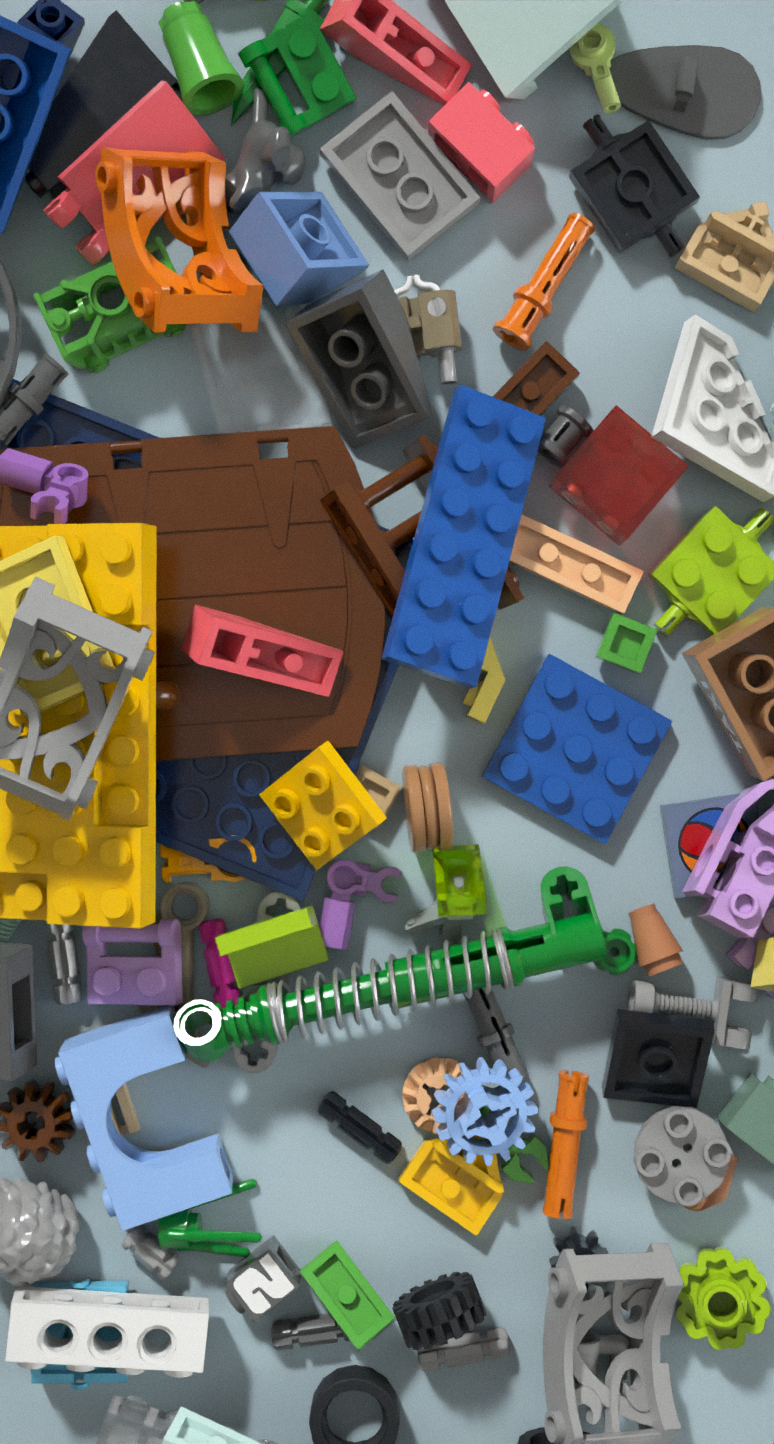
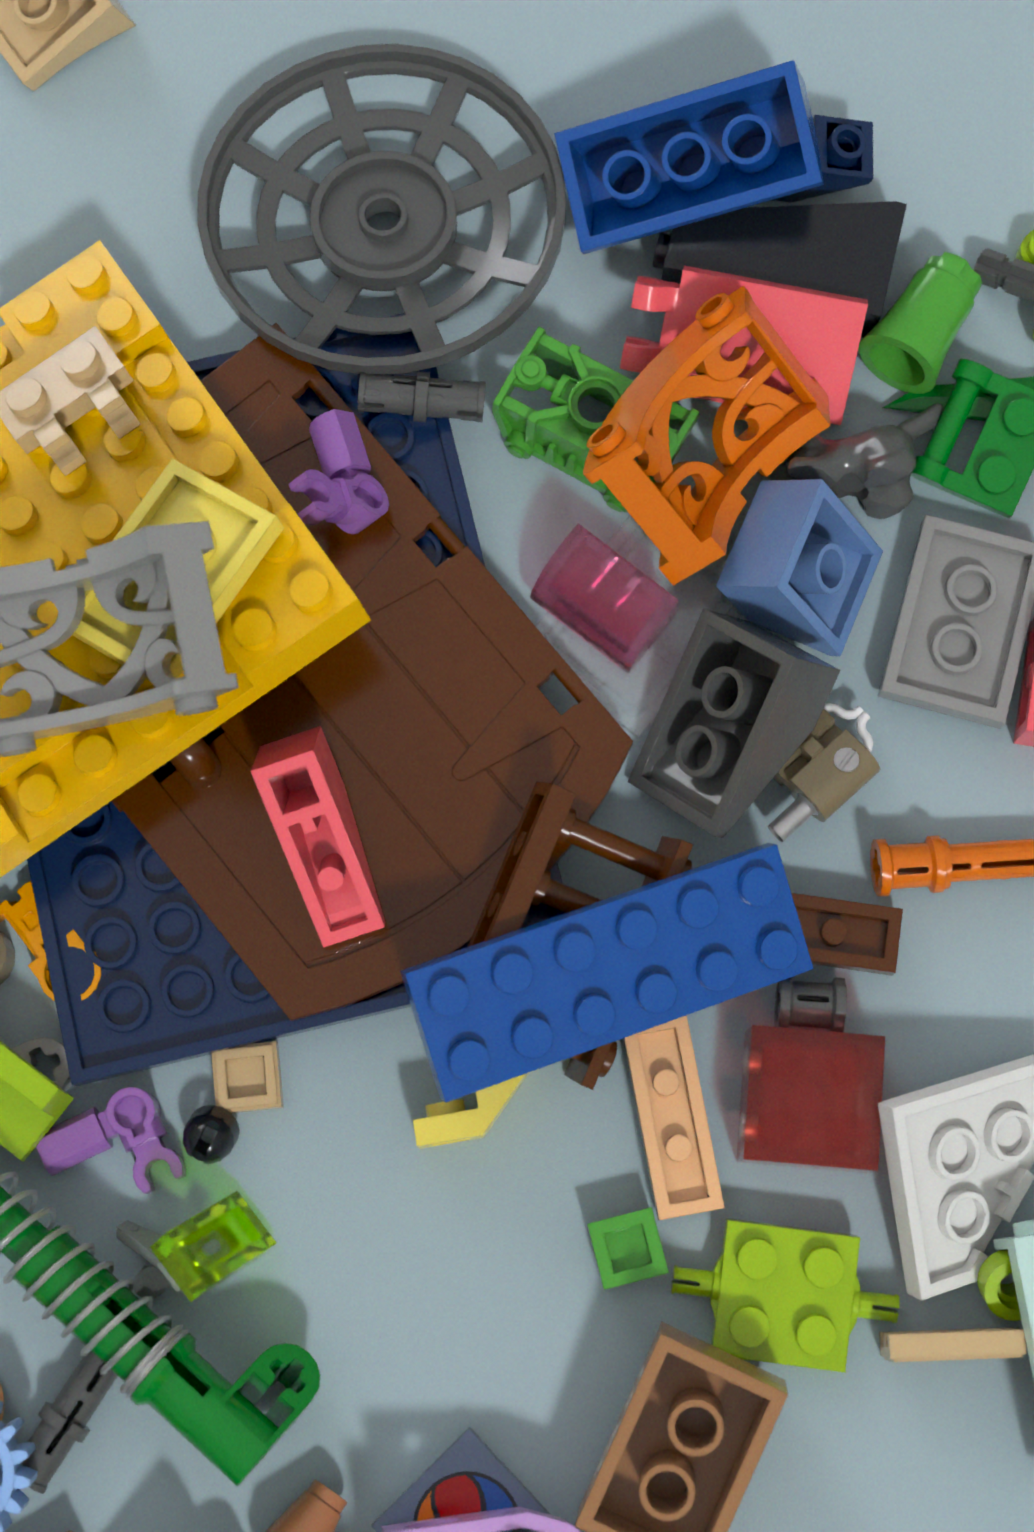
camera: 55 degrees right, 10 degrees down
(233, 380) = (604, 598): none -> clear pink brick
(322, 805) = (192, 1026): yellow plate -> none
(380, 845) = (224, 1141): none -> black hinge
(427, 807) = (273, 1149): medium nougat head -> none
(576, 748) = (465, 1279): blue plate -> none
(626, 956) = (262, 1514): green plate -> none

